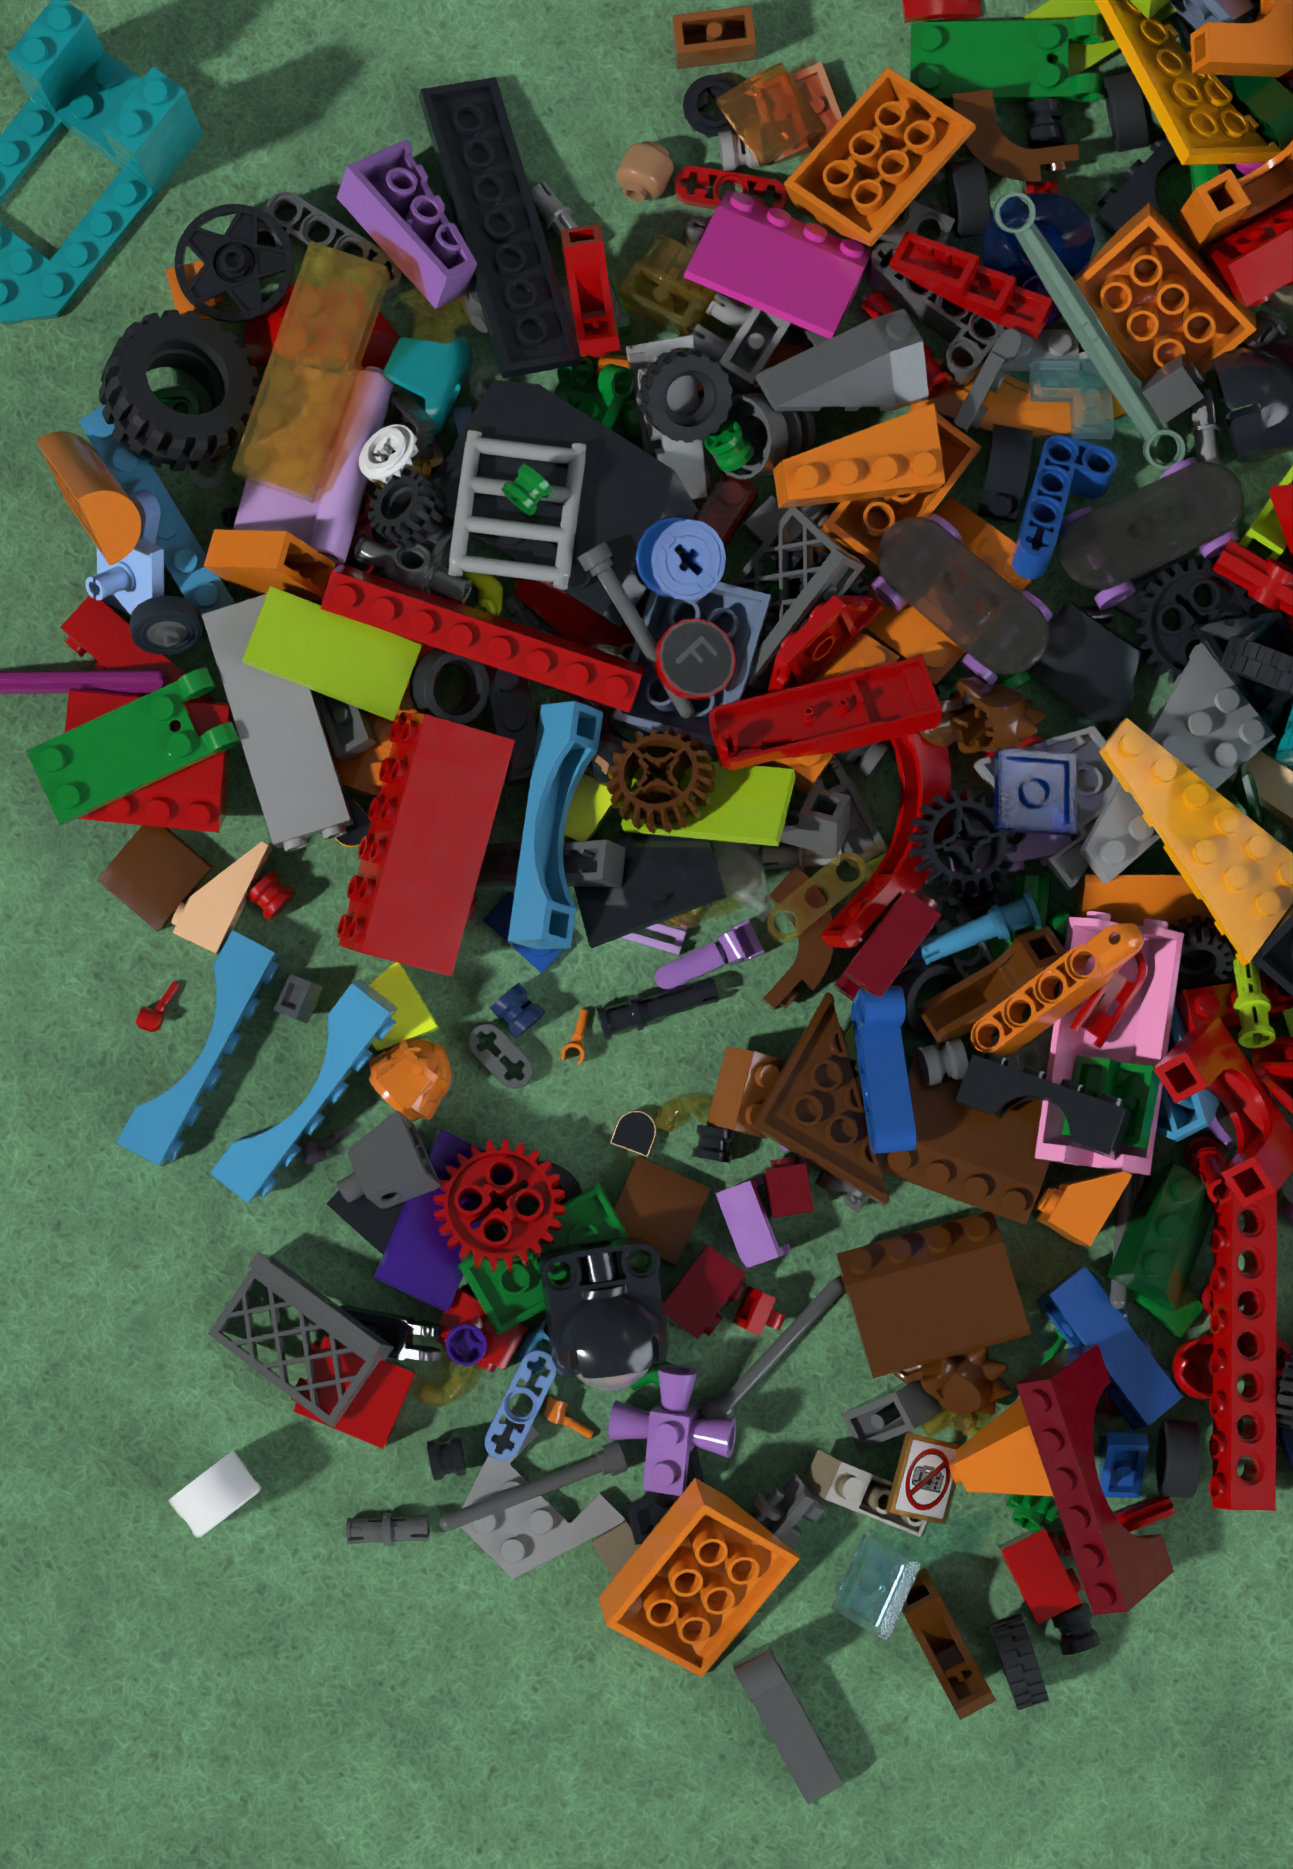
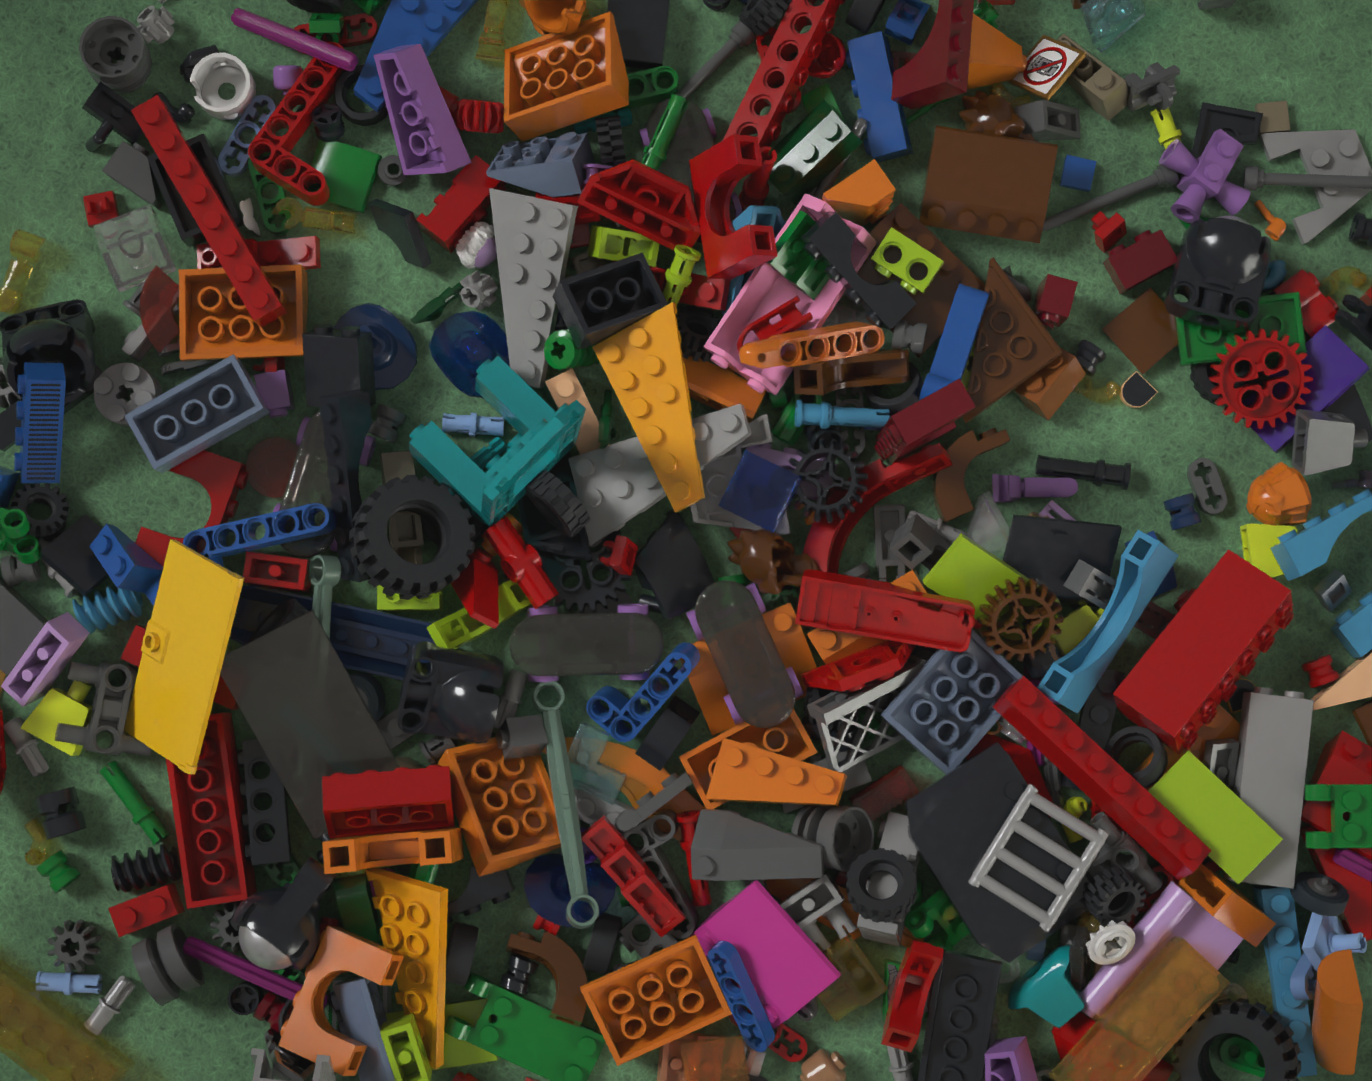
camera: 155 degrees left, 0 degrees up
(469, 1348) = (1330, 290): dark purple wheel -> none
(497, 1427) = (1321, 234): medium blue beam -> none
(527, 489) = (1029, 865): green wheel -> none
(578, 1036) = (1147, 474): orange hand -> none
(599, 563) = (997, 791): dark grey piece -> none
(660, 564) = (922, 775): piece -> none
(695, 659) = (958, 693): black tile -> none
(696, 1579) = (1234, 70): orange slope -> none
(729, 446) = (862, 836): green wheel -> none
(740, 1472) = (1166, 127): none -> neon yellow pin
(749, 1223) = (1089, 291): medium lavender hinge -> none
(783, 206) = (728, 964): none -> blue beam
(825, 1368) = (1077, 173): none -> blue tile
(826, 880) = (959, 486): clear yellow beam -> none
(989, 1159) = (911, 255): none -> lime brick
(1159, 647) = (622, 555): none -> red tile

